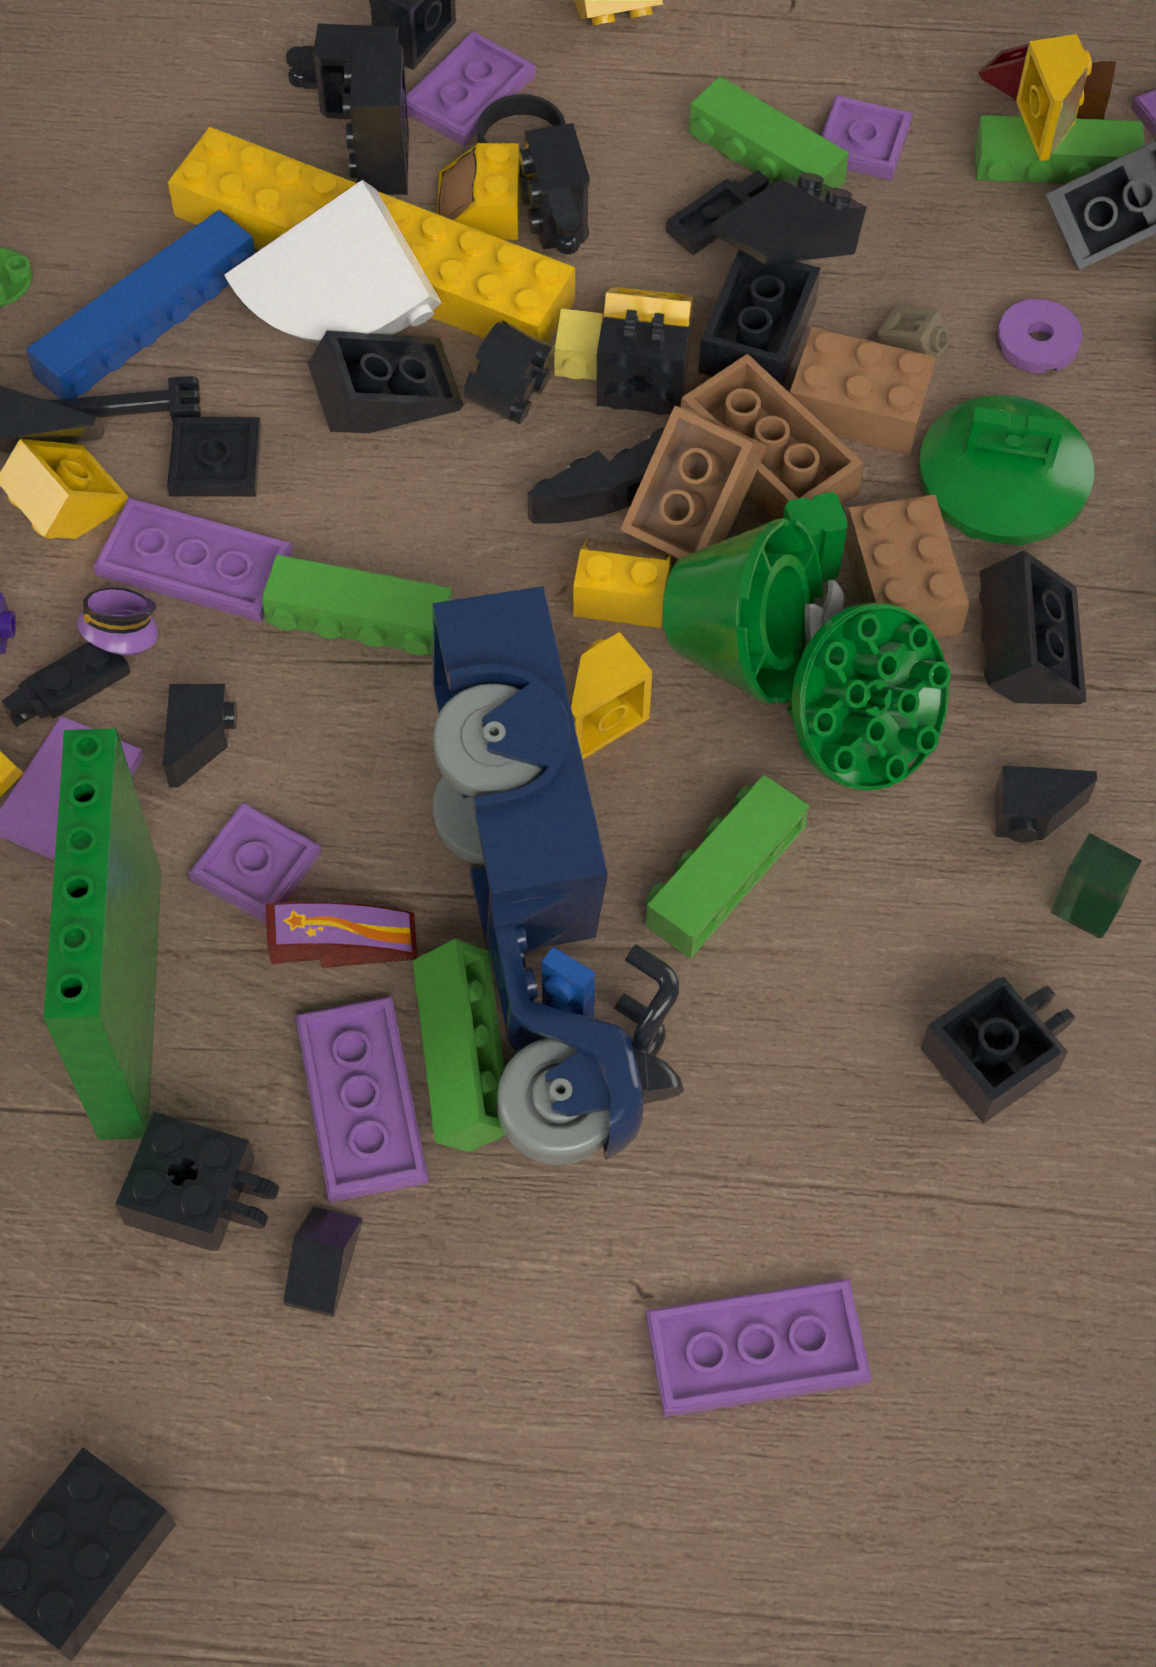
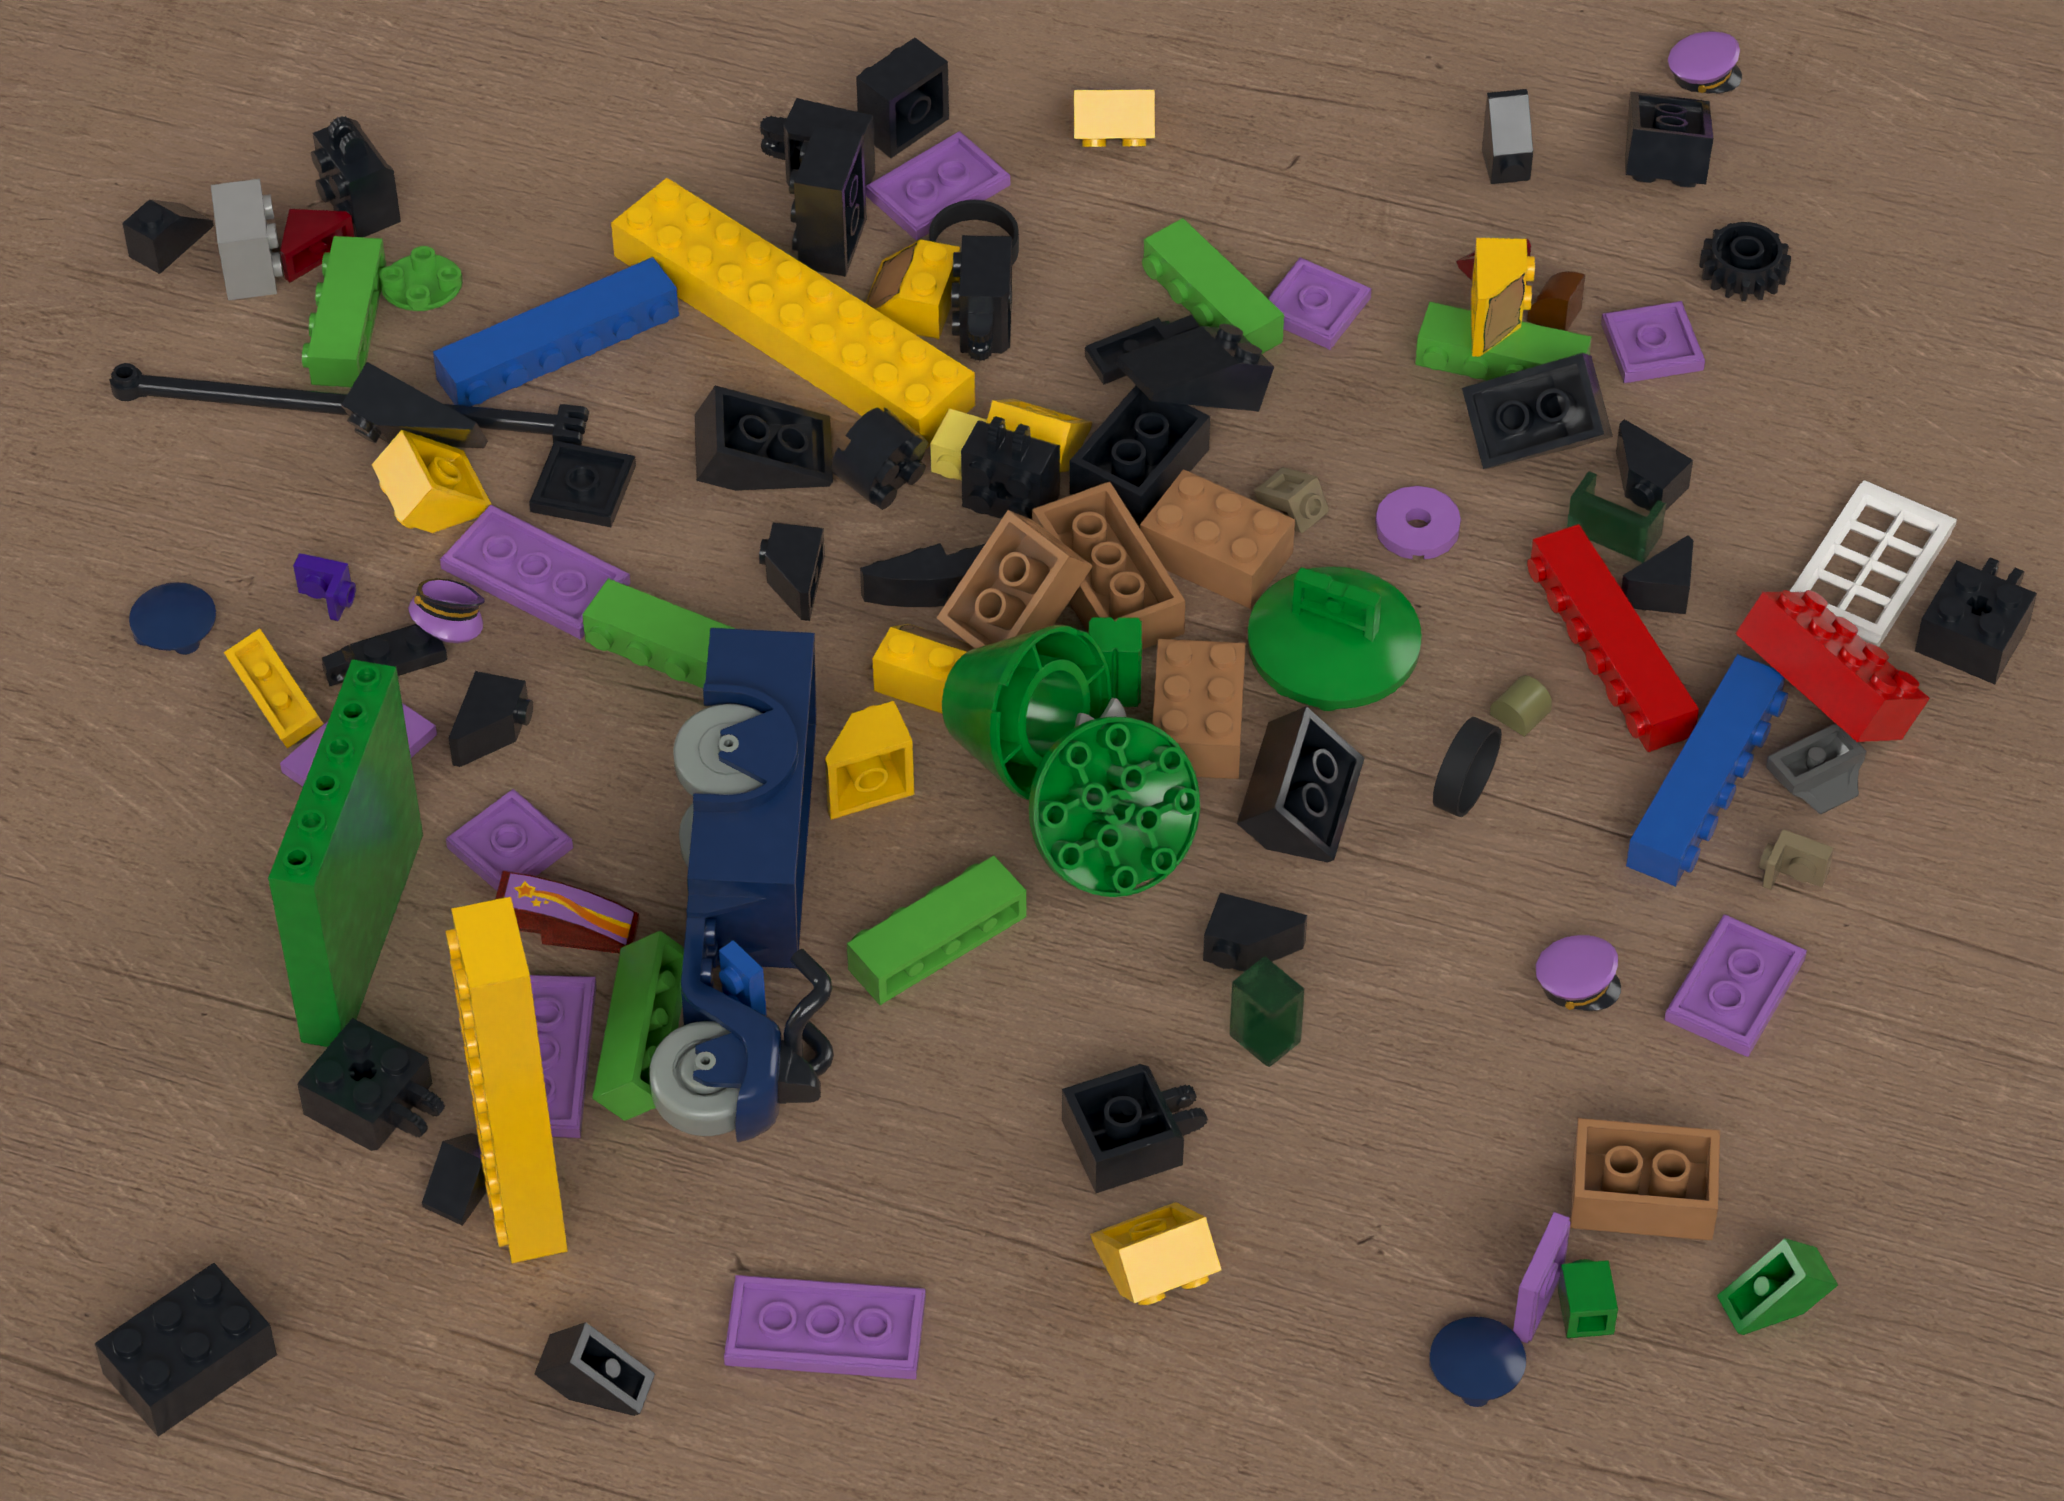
camera: 15 degrees right, 10 degrees down
(338, 273) = (745, 335): white brick -> none
(383, 1188) = (506, 1078): none -> yellow brick
(455, 501) = (794, 564): none -> black slope
(533, 1467) = (594, 1370): none -> black slope
(1073, 1179) = (1158, 1253): none -> yellow slope

